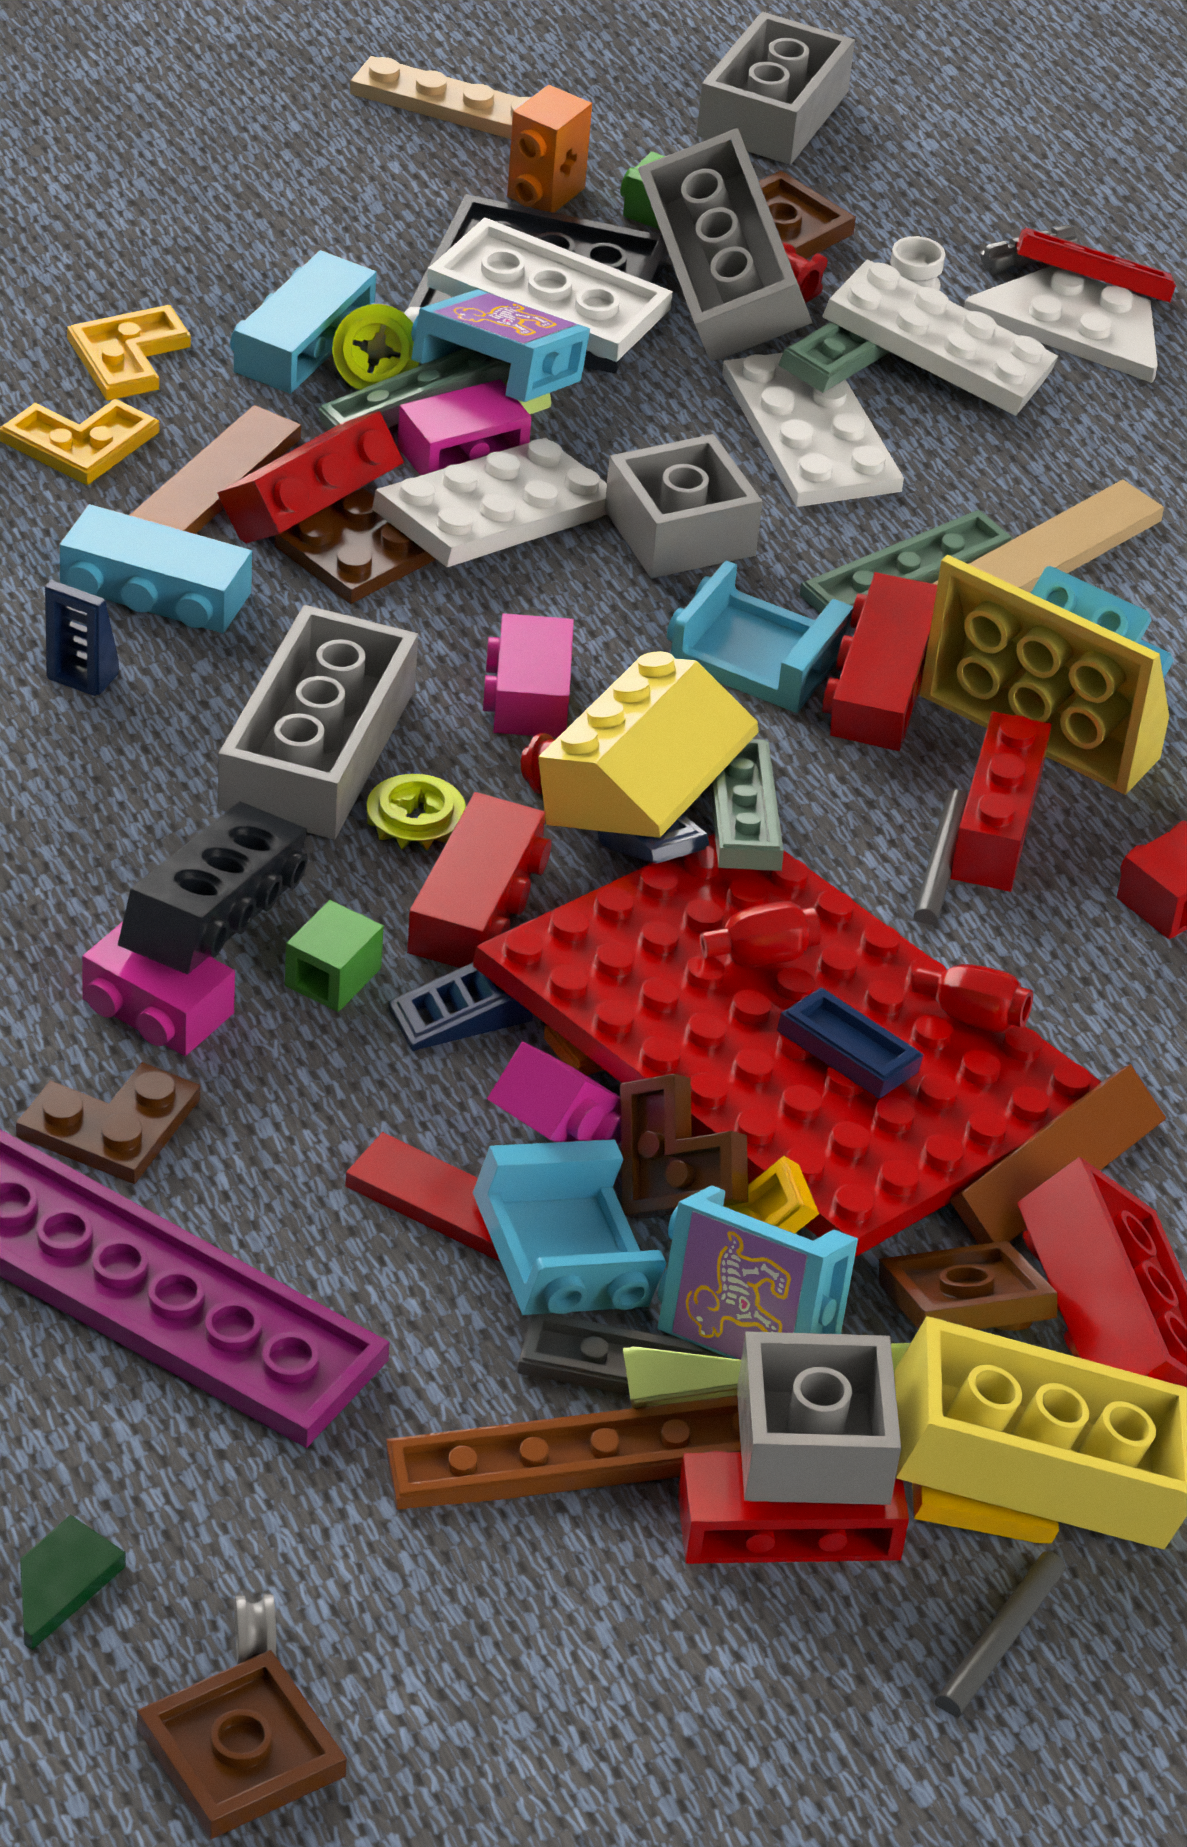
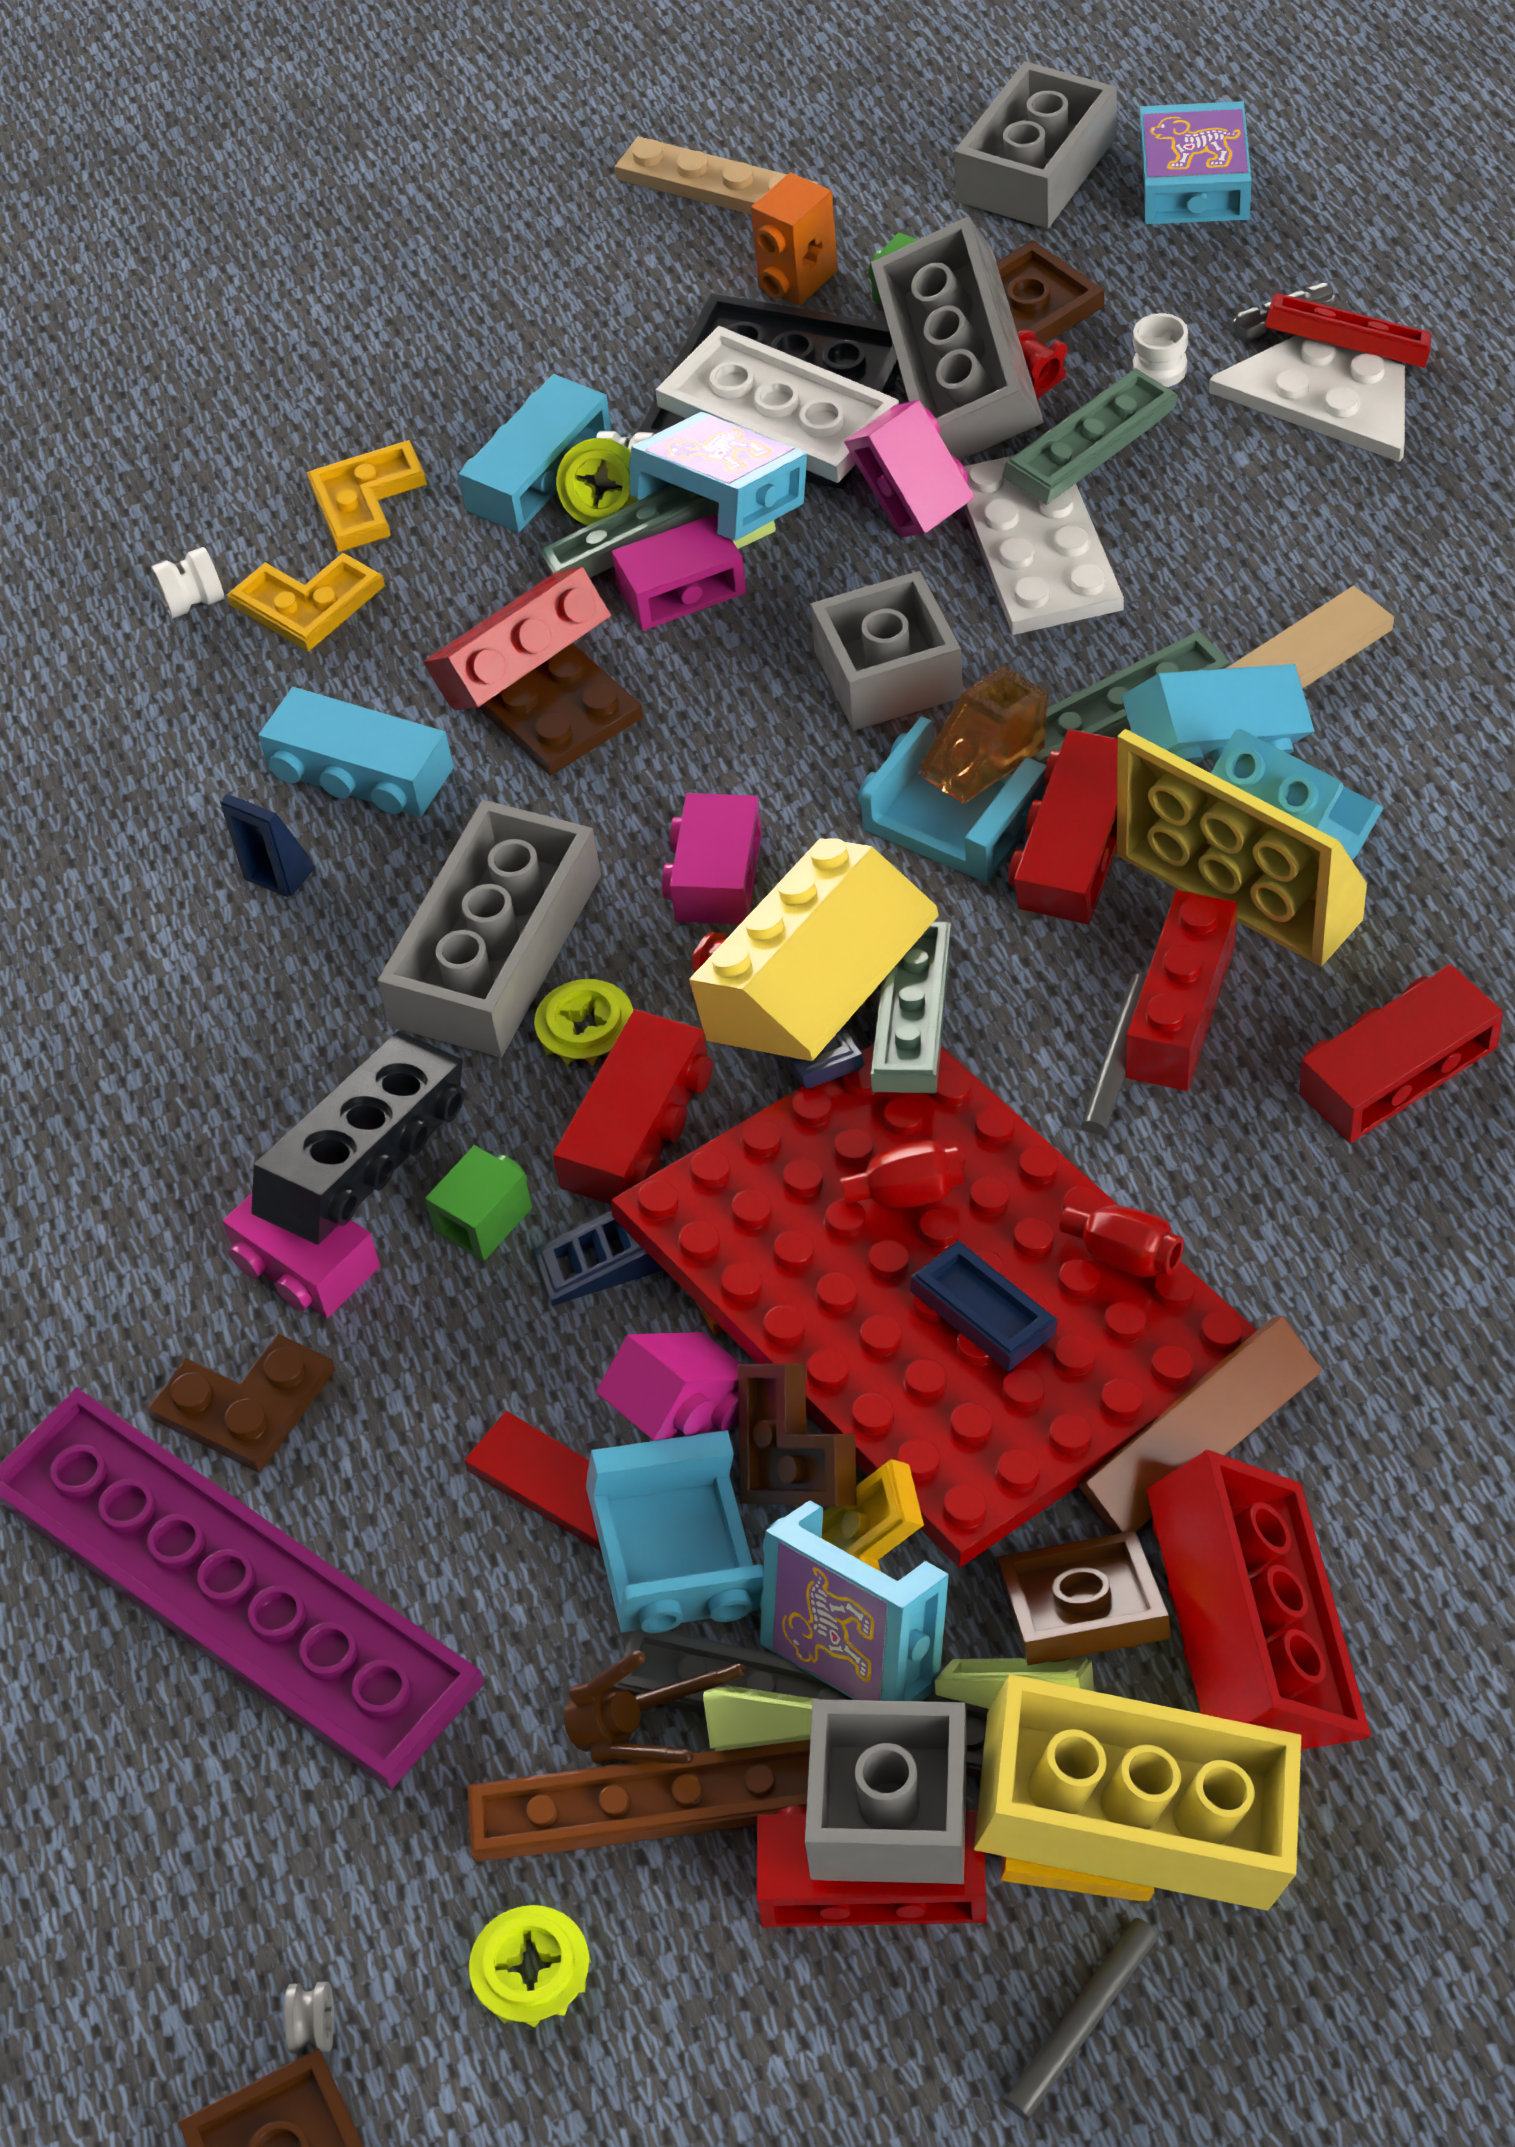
camera: 15 degrees right, 10 degrees up
(63, 1576) = (130, 1950): dark green tile -> none
(245, 446) = (458, 606): tile -> none
(488, 1571) = (502, 1947): none -> neon yellow gear
(493, 501) = (699, 653): white plate -> none
(517, 1382) = (605, 1716): none -> reddish brown plant
(689, 351) = (910, 468): none -> brick
(794, 576) = (987, 734): none -> clear orange slope
(931, 115) = (1195, 162): none -> panel
(941, 336) = (1176, 428): white plate -> none
(1016, 550) = (1201, 709): none -> medium azure brick

